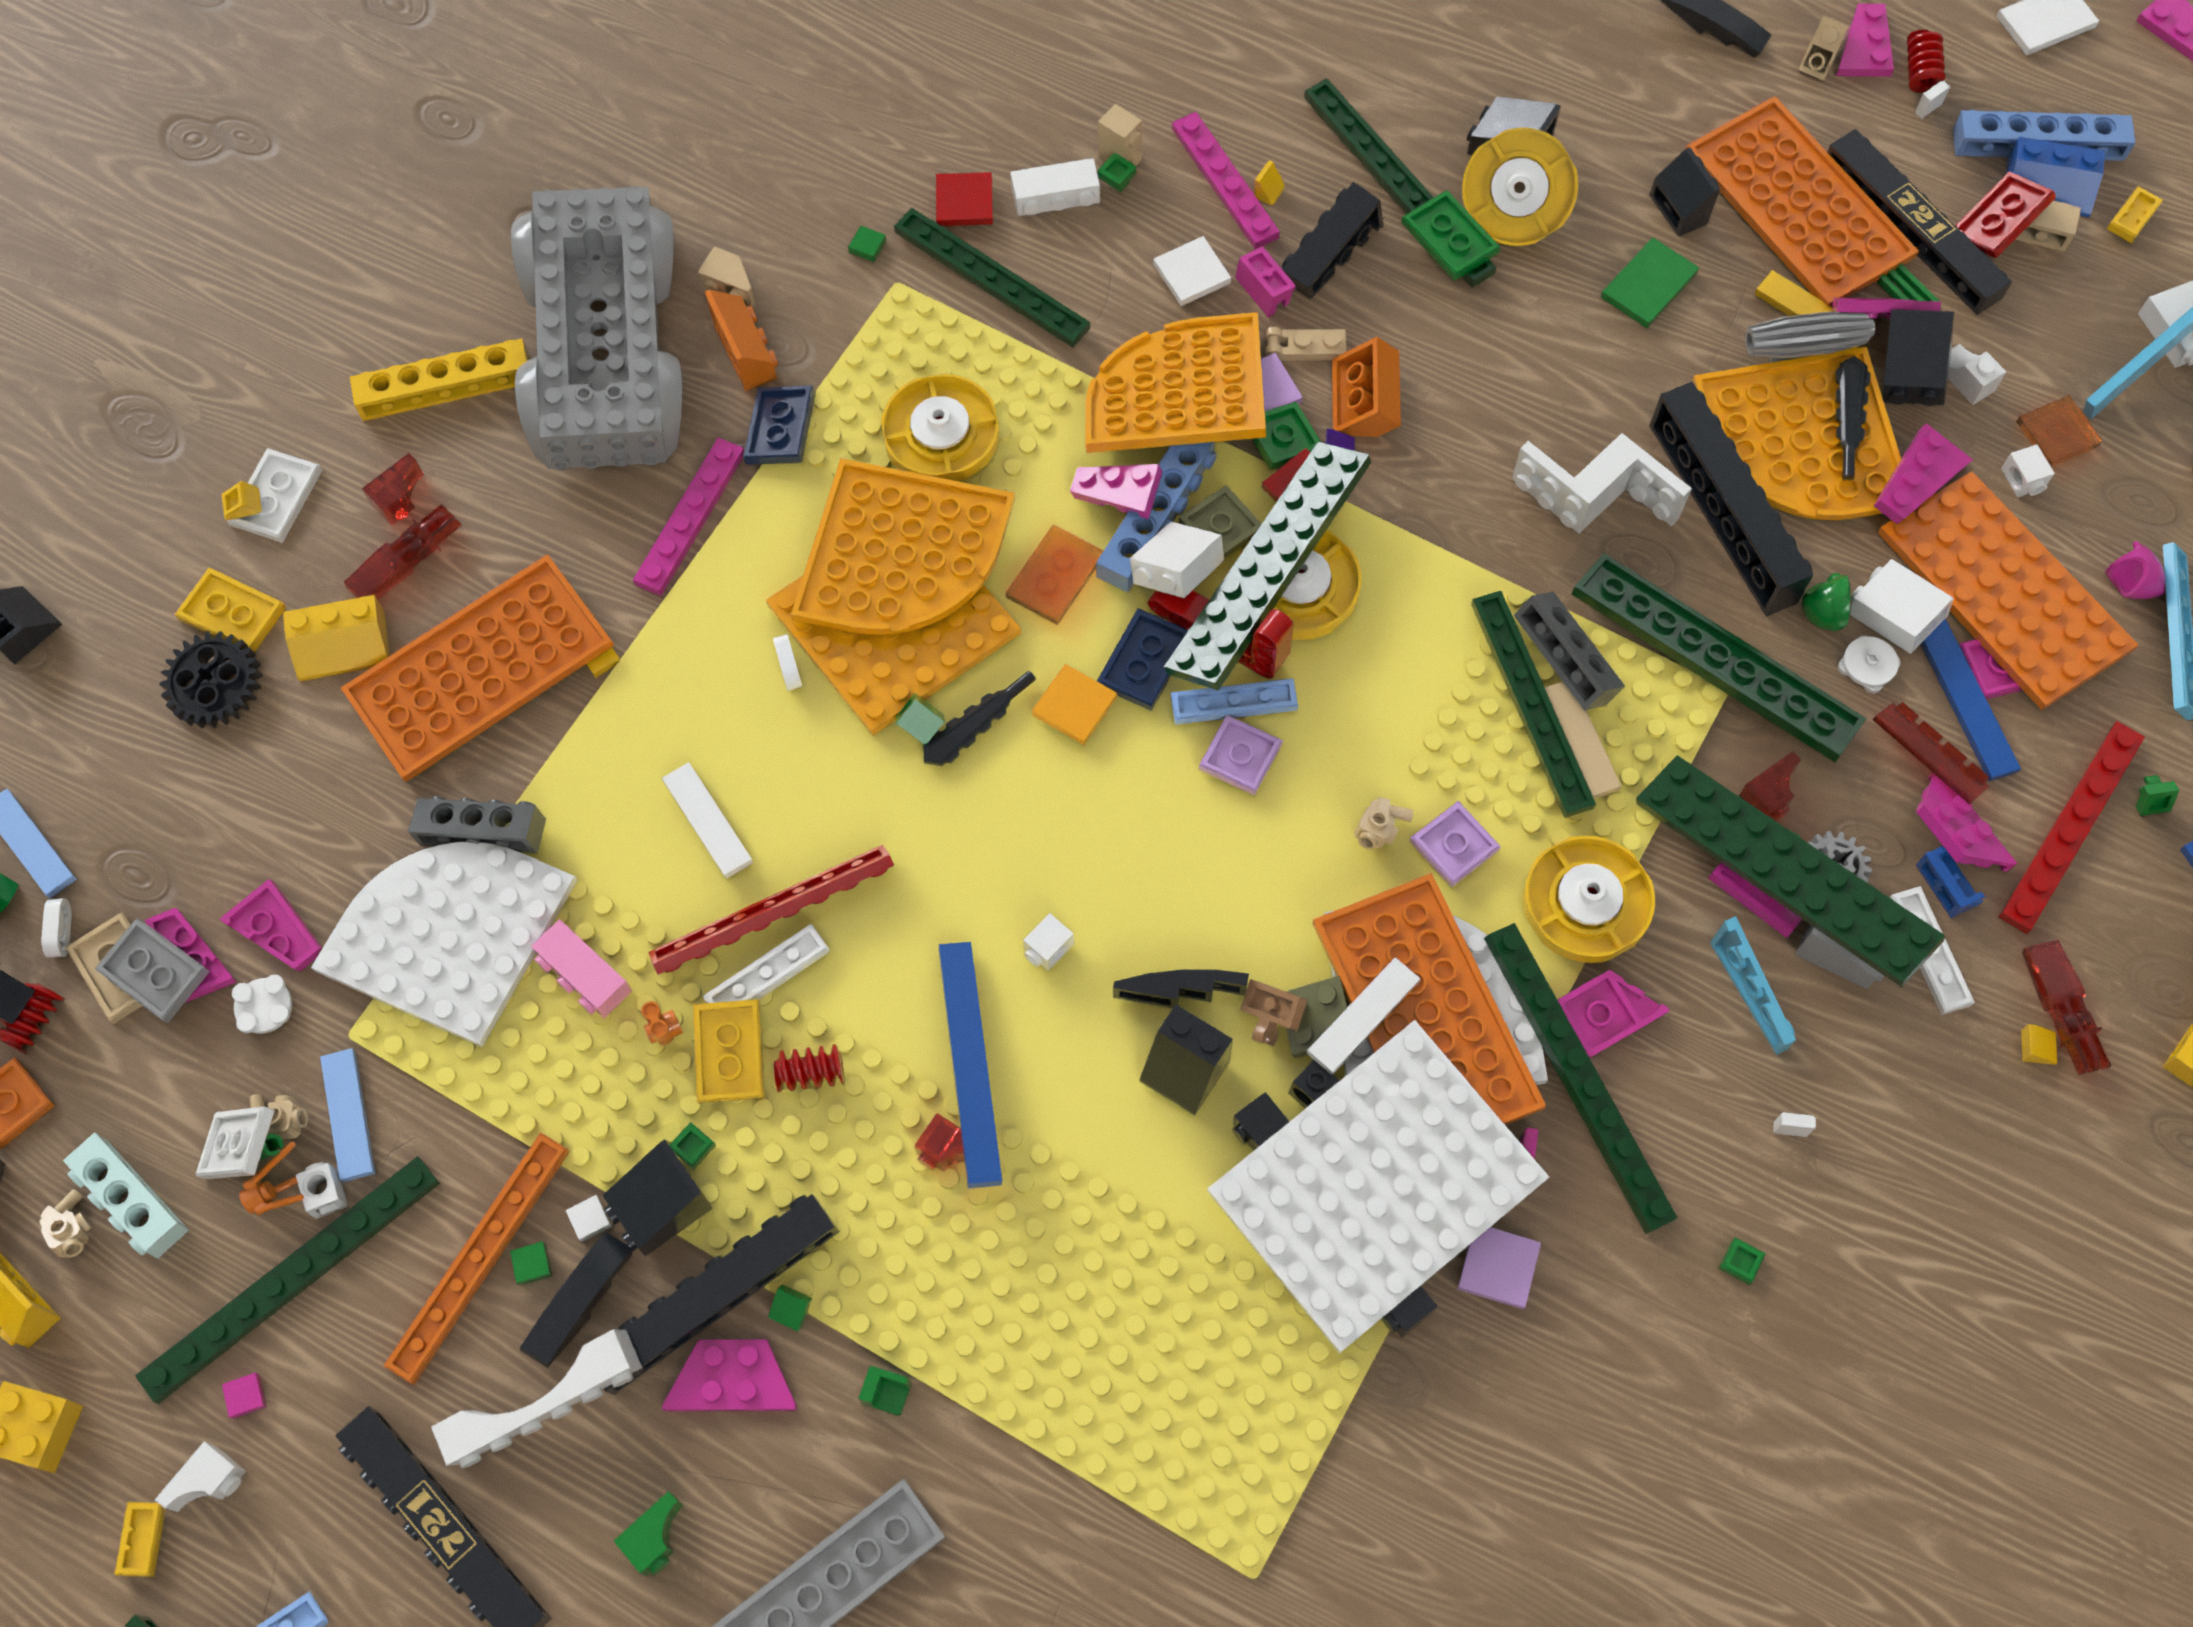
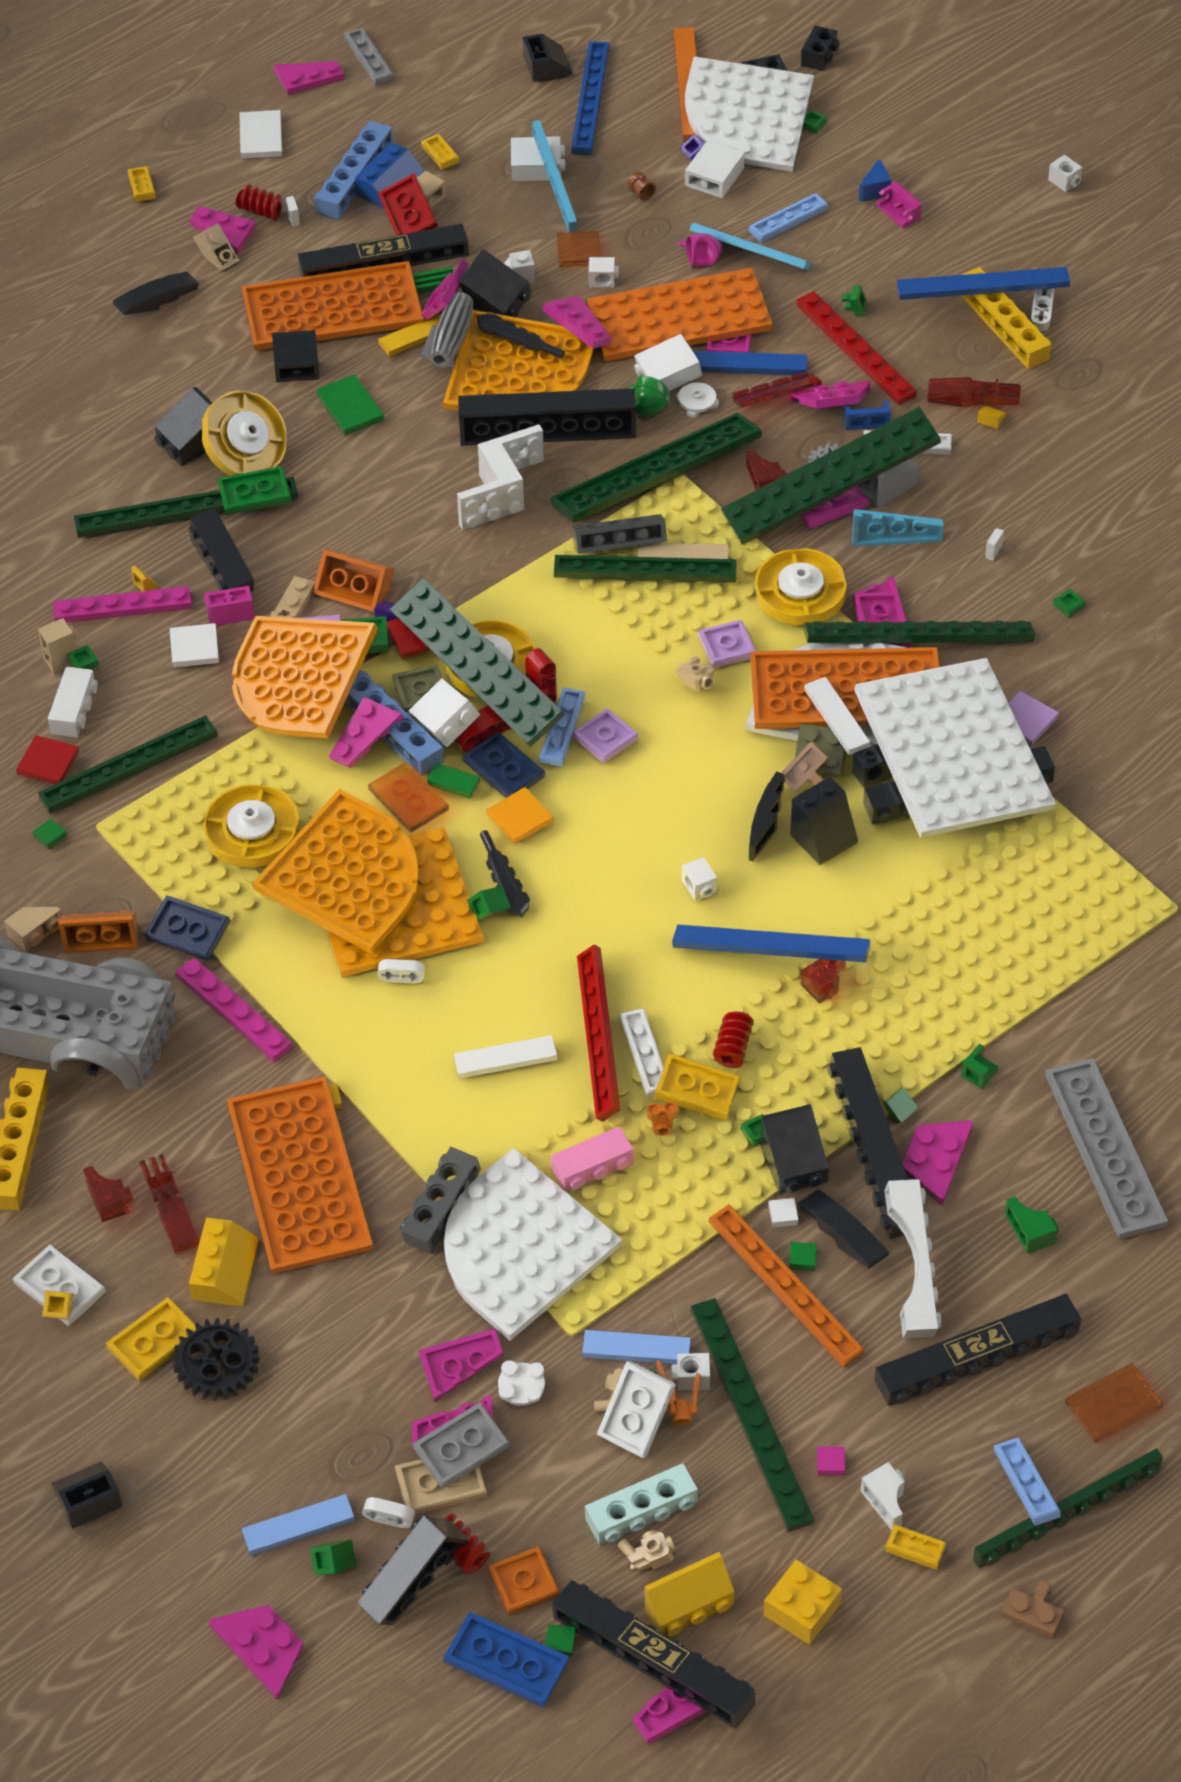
camera: 70 degrees left, 15 degrees down
(1098, 612) = (453, 780): none -> green tile

